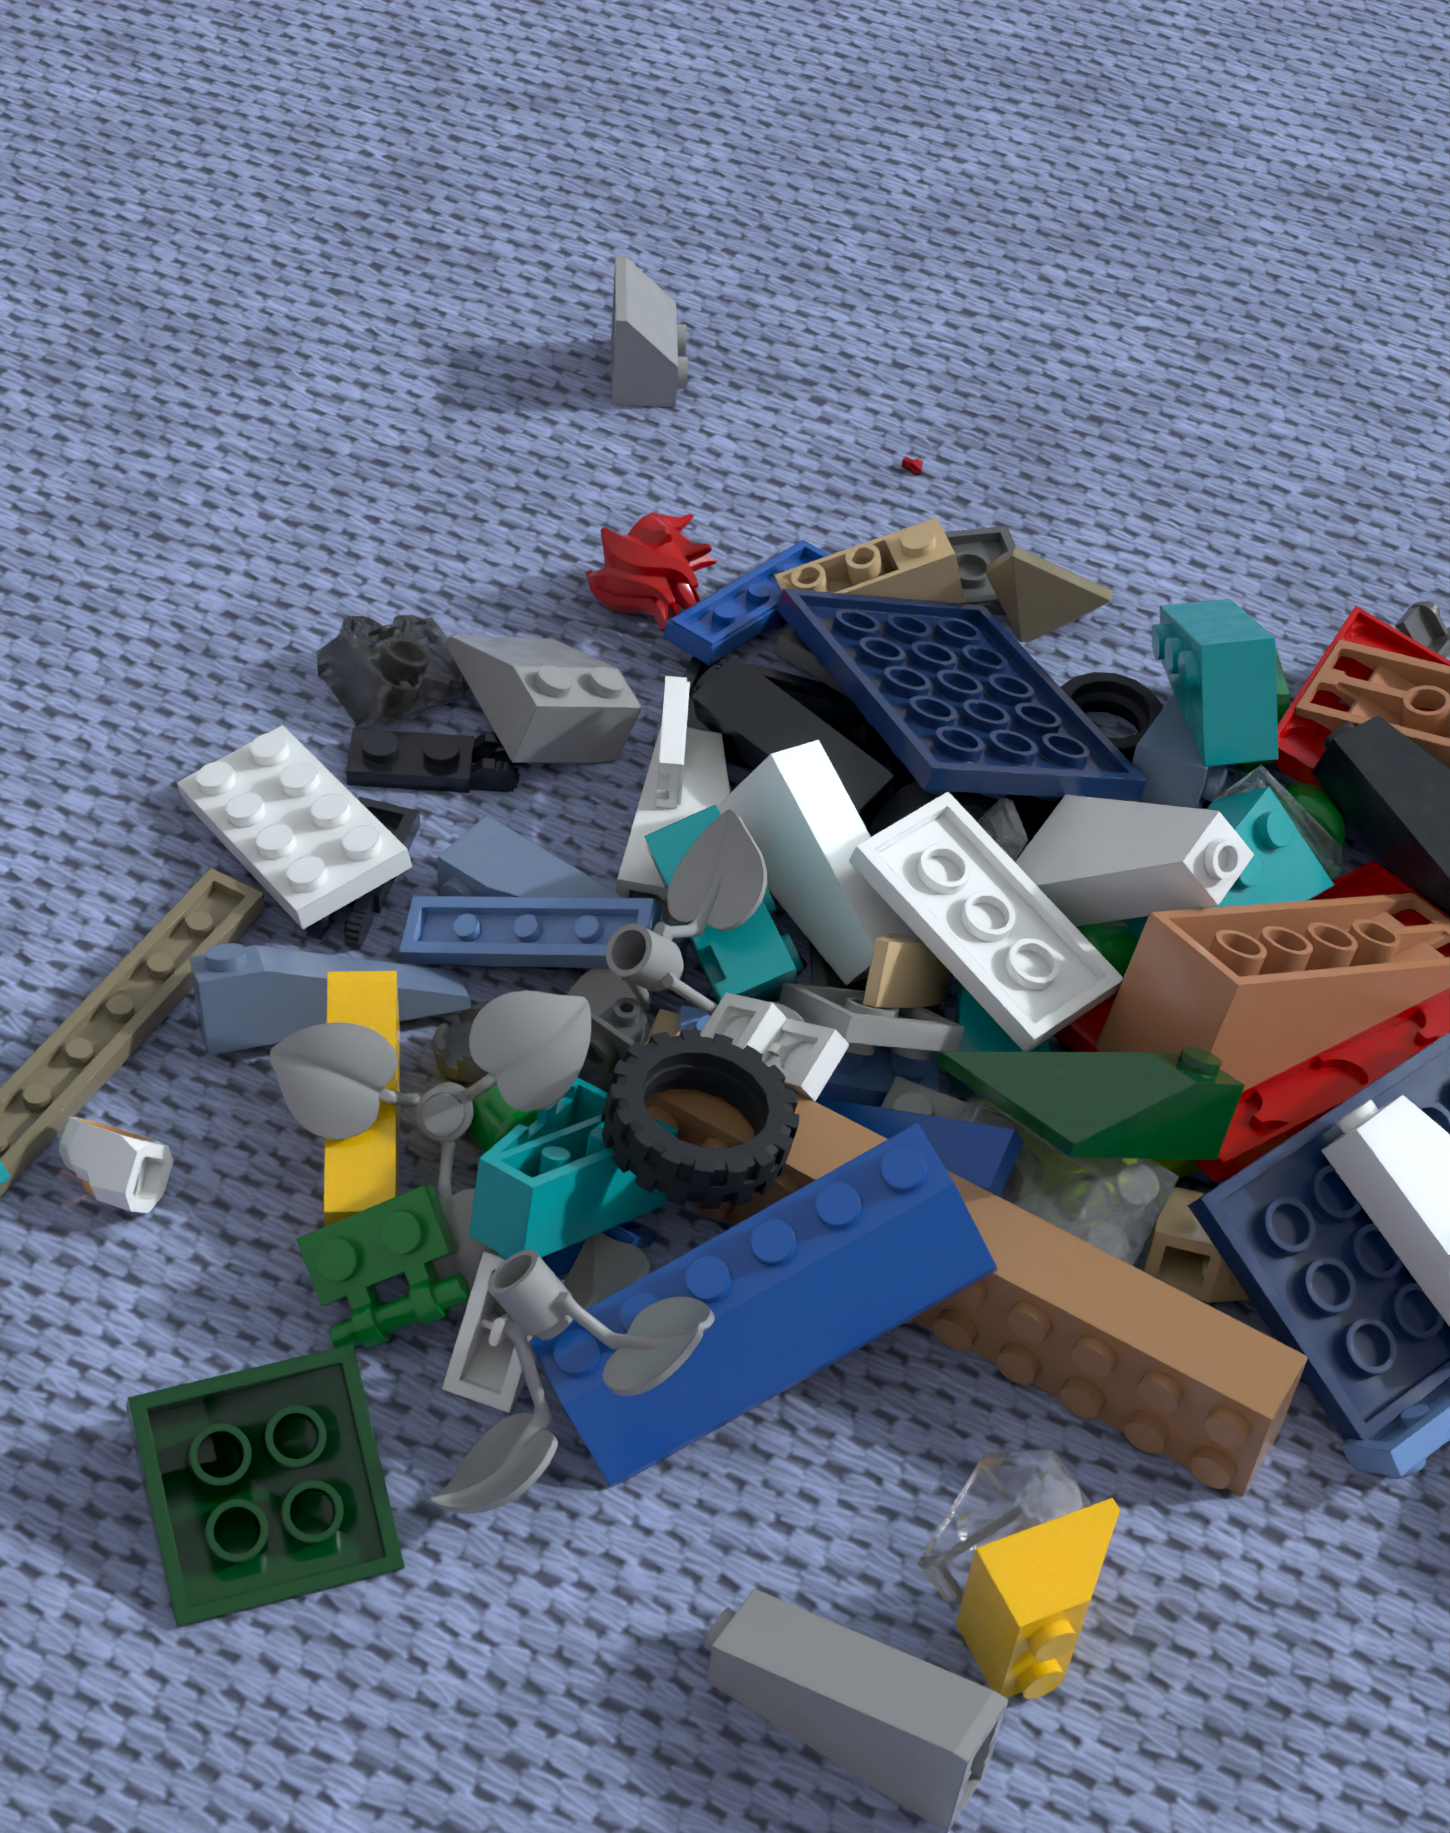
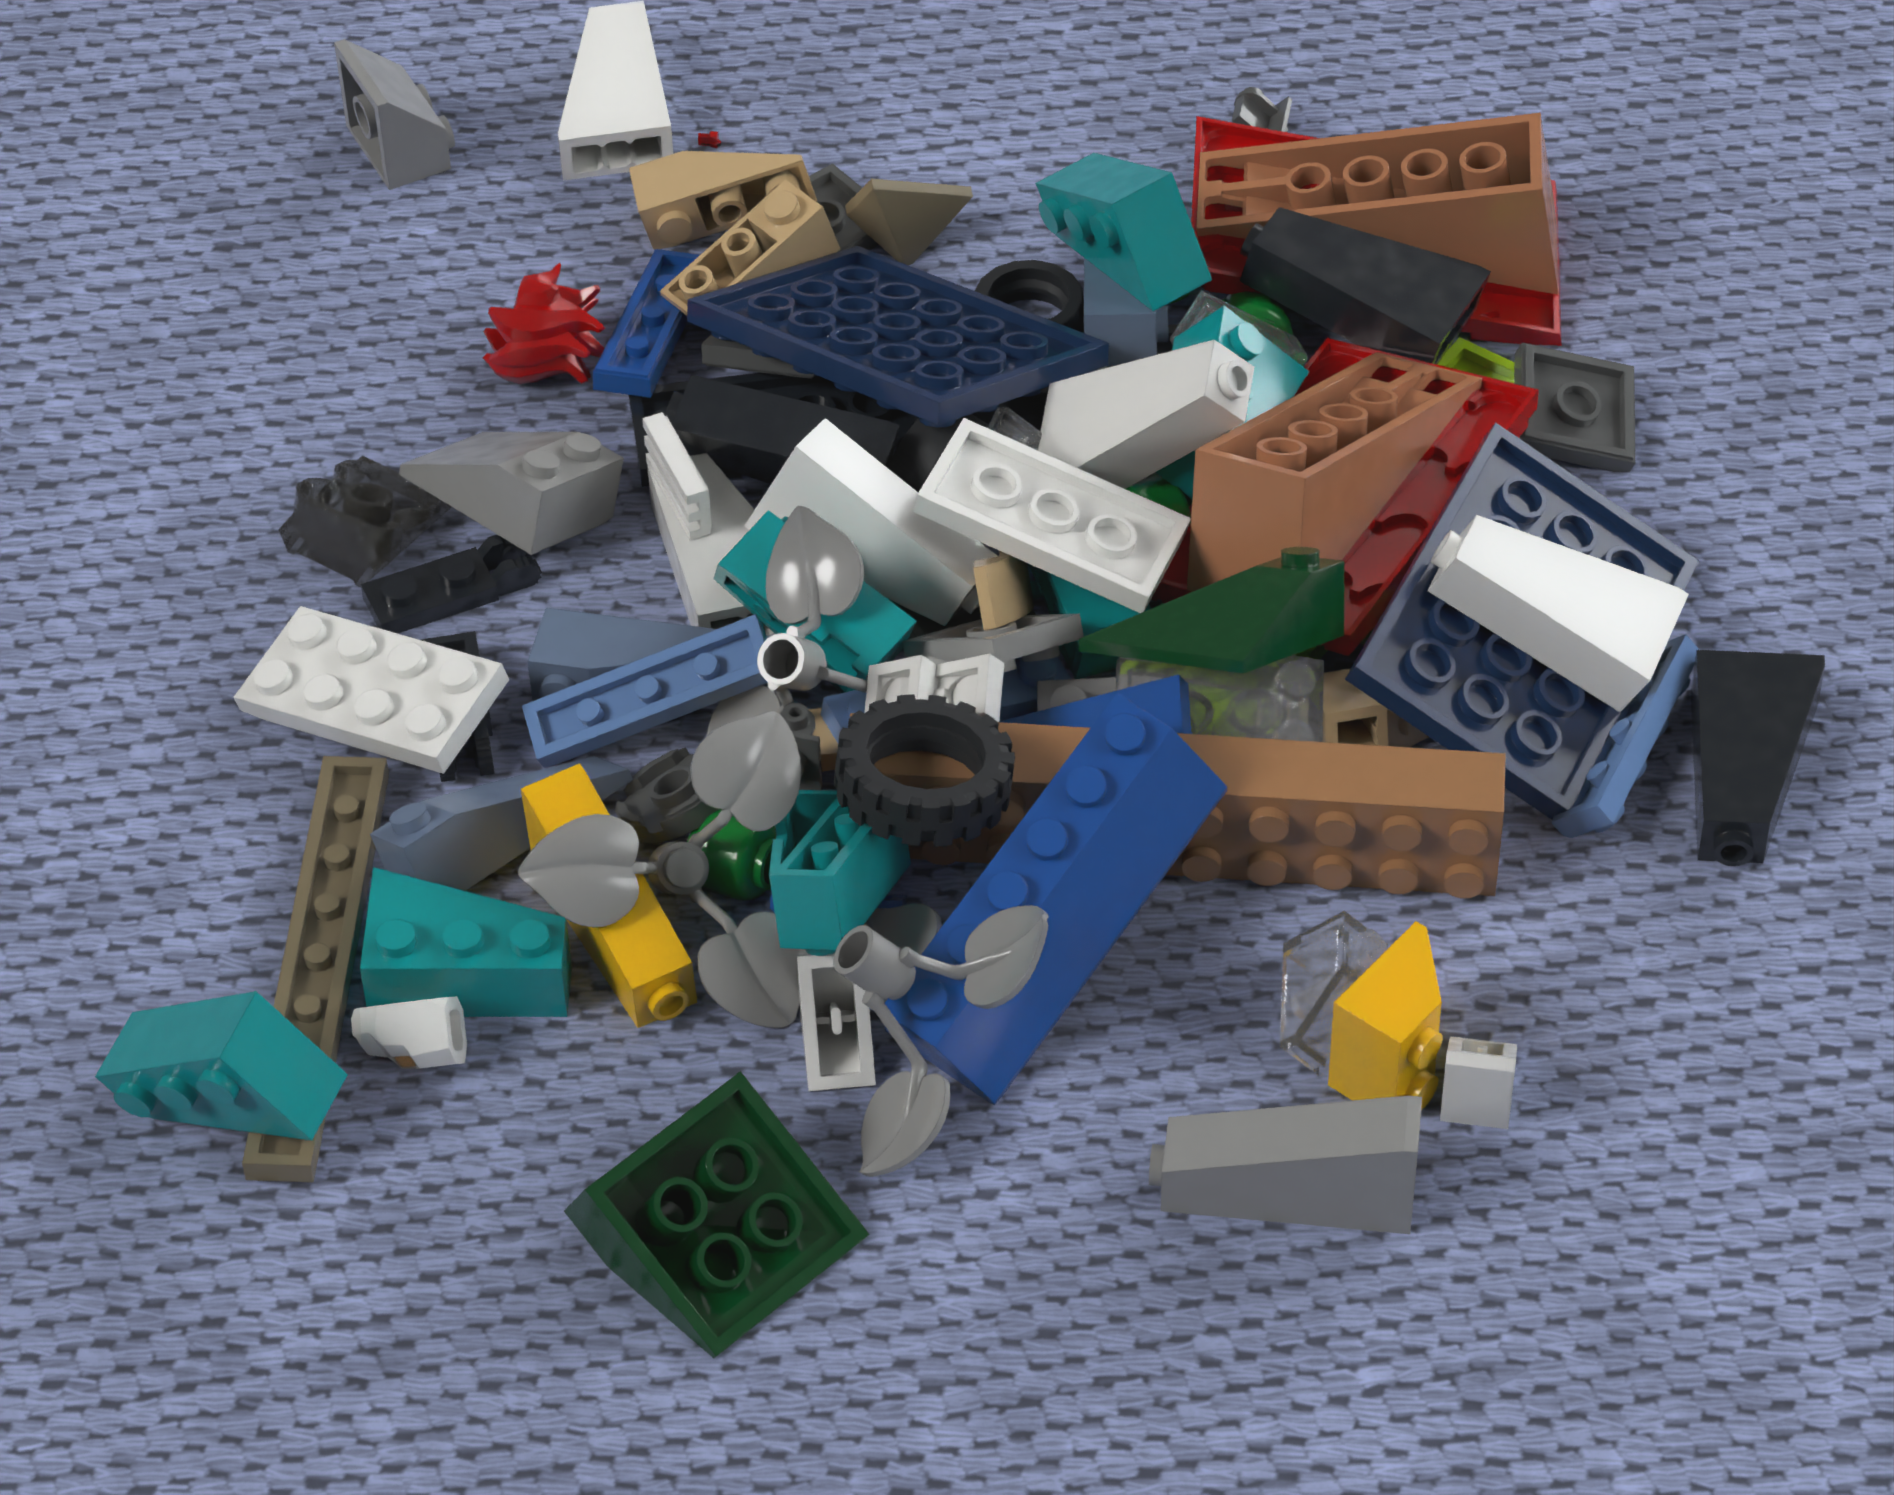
camera: 20 degrees left, 0 degrees up
(203, 1101) = (453, 943): none -> teal wedge
(379, 1246) = (697, 996): green plate -> none
(846, 399) = (615, 97): none -> white slope
(863, 501) = (708, 191): none -> tan slope
(1109, 1693) = (1478, 1082): none -> white slope

